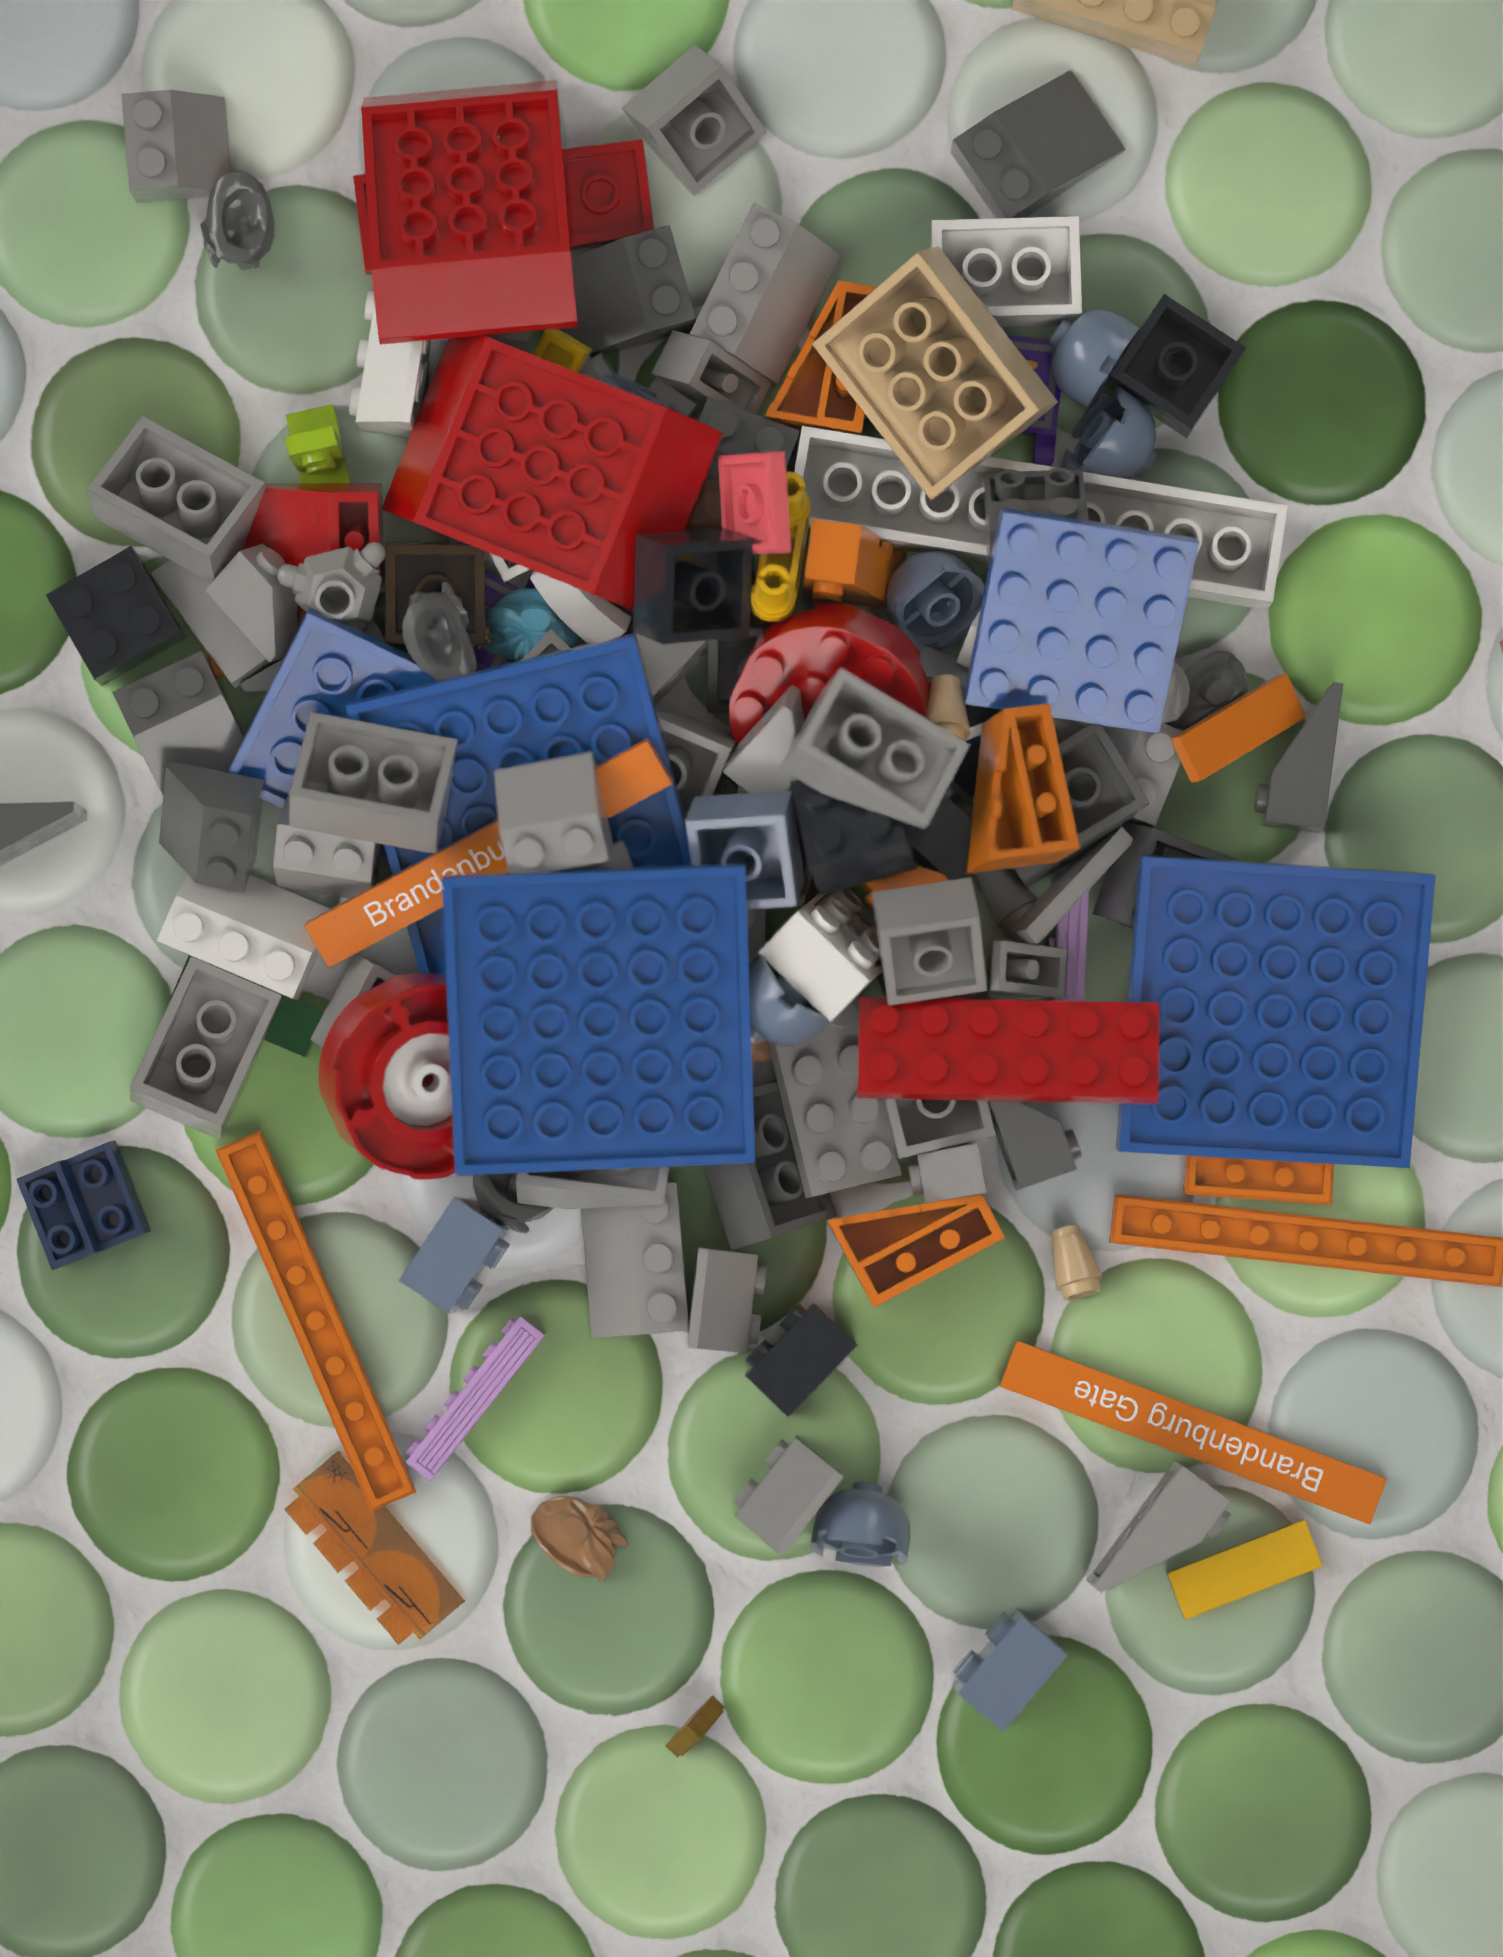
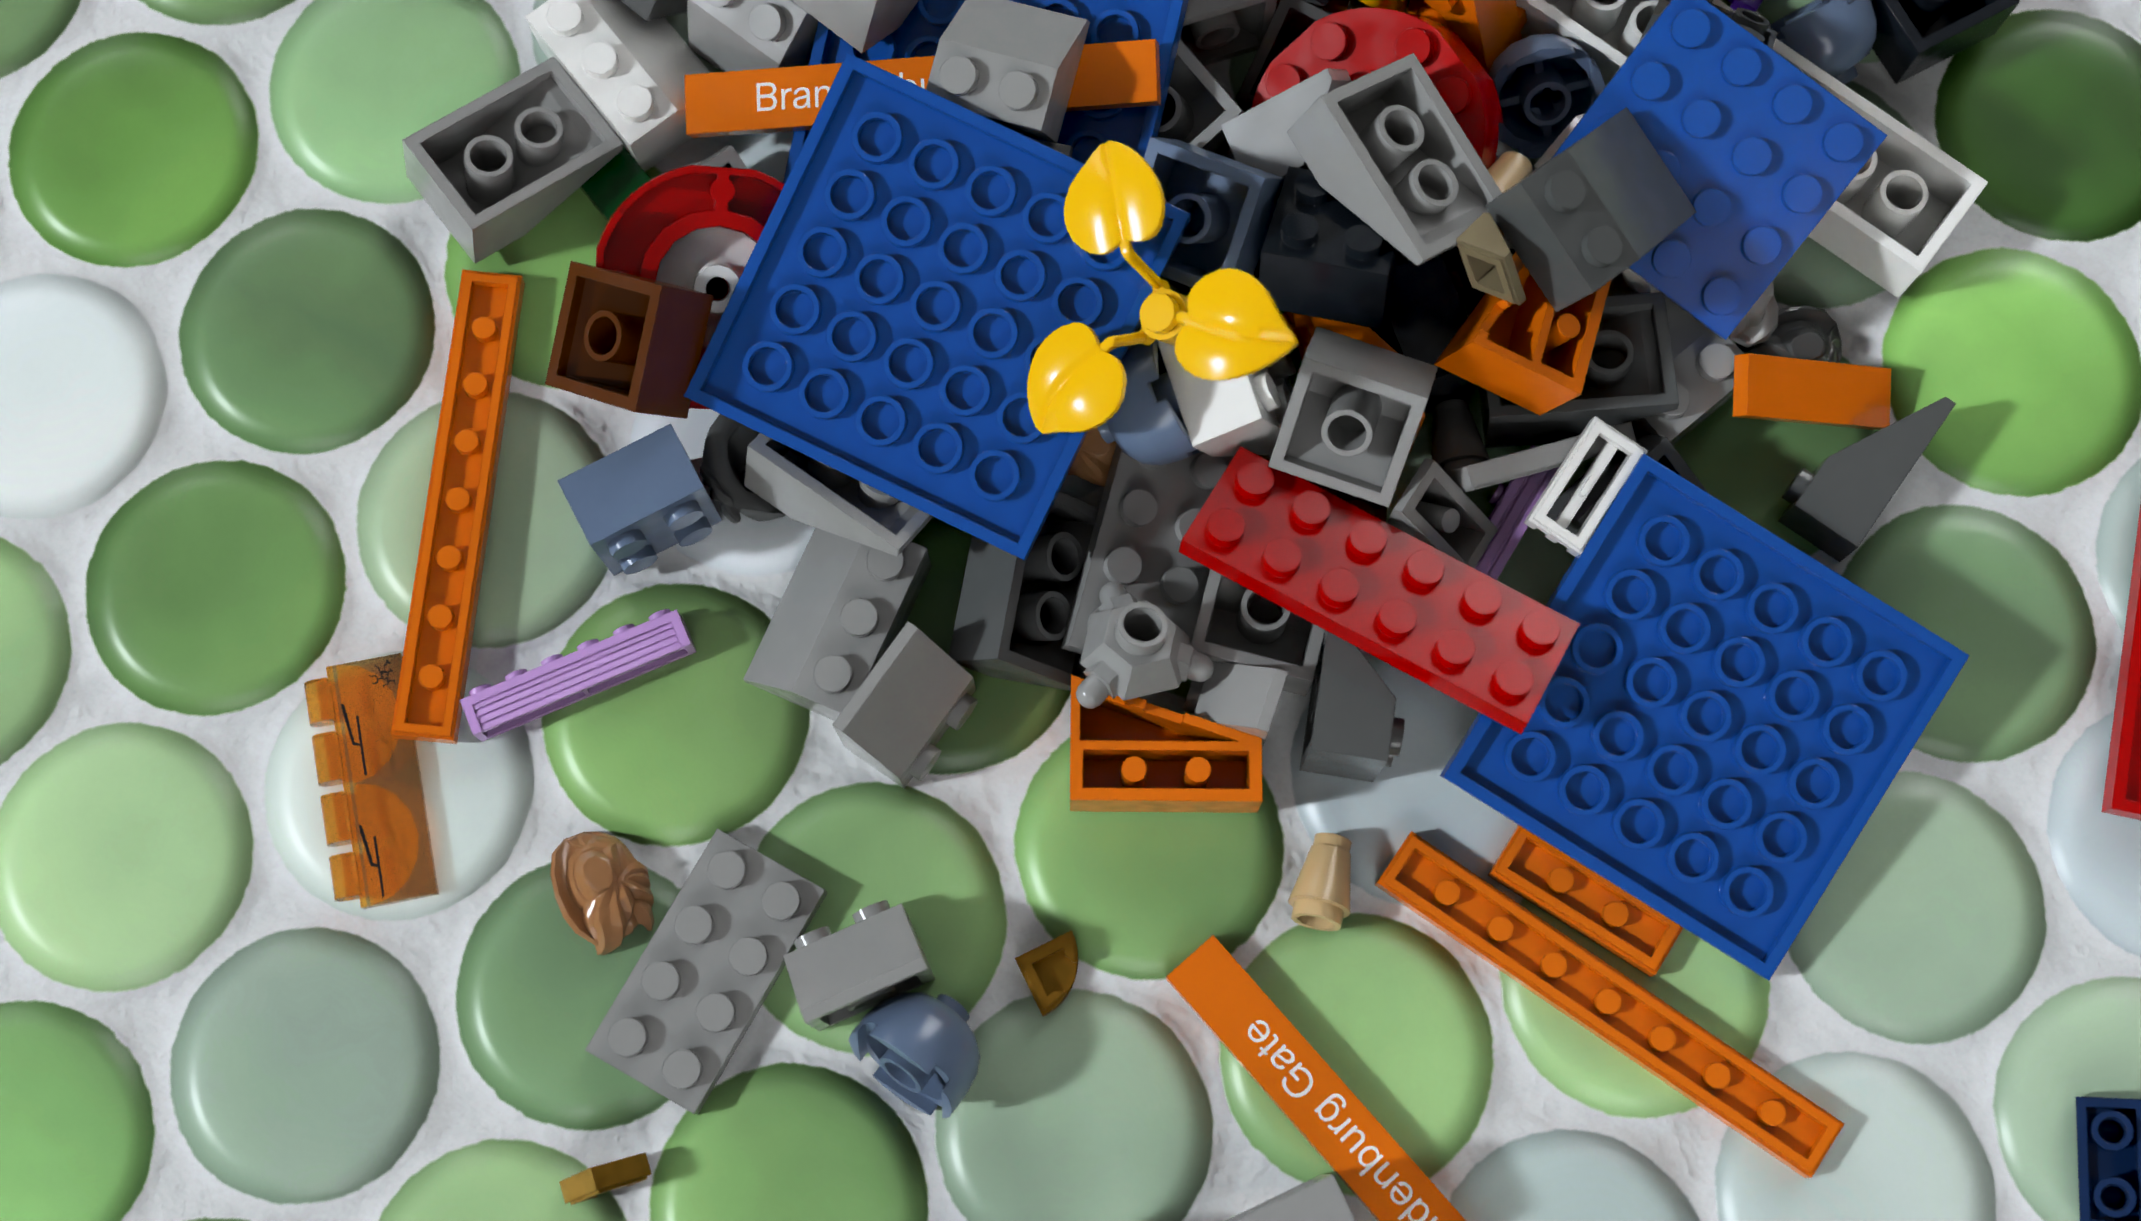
camera: 30 degrees right, 10 degrees down
(83, 1205) = (294, 257): dark blue slope -> none
(395, 1158) = (628, 340): none -> reddish brown slope
(683, 1552) = (706, 972): none -> light grey plate
(799, 1358) = (954, 814): black brick -> none
(823, 953) = (1218, 331): none -> yellow plant
(863, 1181) = (1135, 651): none -> light grey rock
(918, 1424) = (1050, 971): none -> pearl gold tile
(971, 793) = (1490, 260): none -> dark tan slope
(1023, 712) = (1591, 210): none -> dark grey slope
(1095, 891) = (1557, 530): none -> white tile

